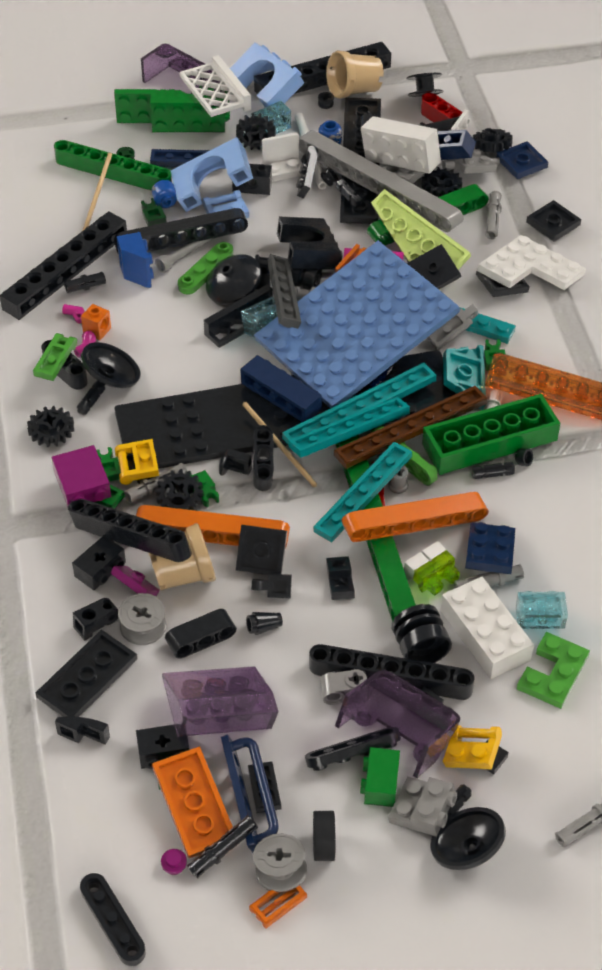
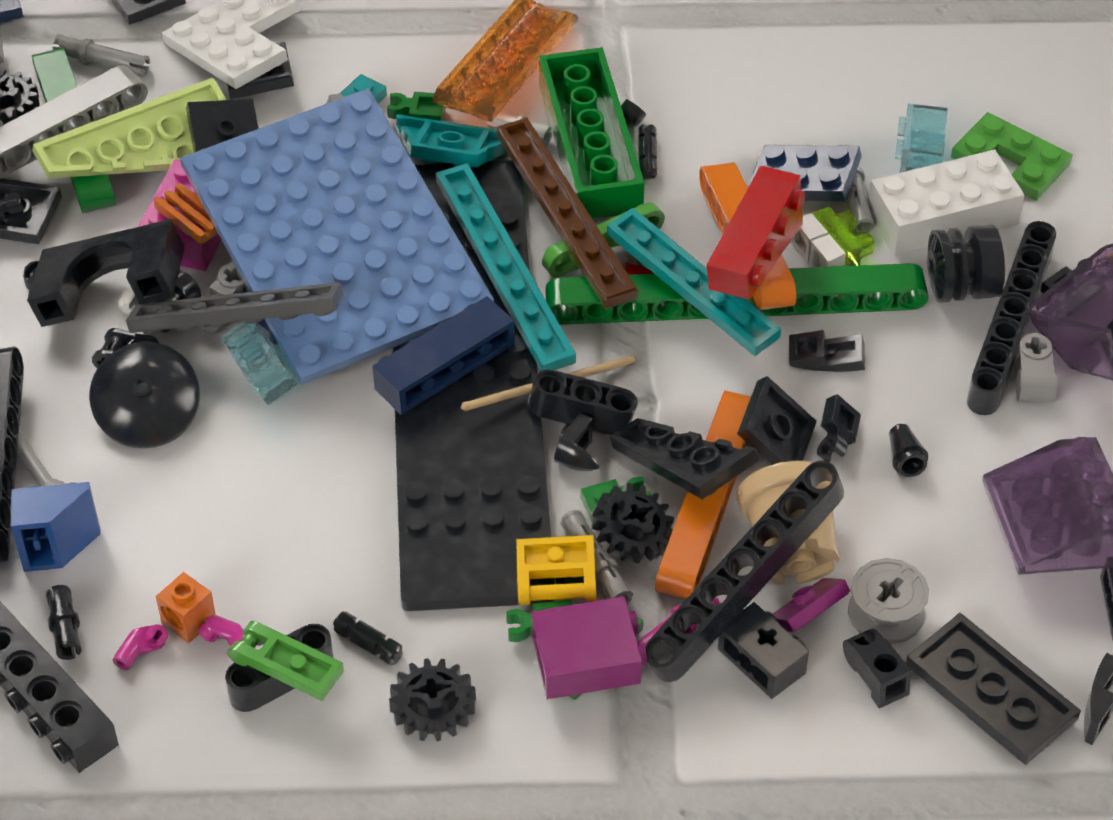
camera: 80 degrees left, 0 degrees up
(110, 365) = (316, 589): black dish -> none
(198, 273) = (85, 440): bright green plate -> none
(200, 633) = (922, 529): black beam -> none
(223, 504) = (684, 457): none -> black wing
(231, 315) = (229, 406): black fence -> none
(349, 427) = (555, 281): teal plate -> none
(383, 500) = (757, 233): none -> red wedge

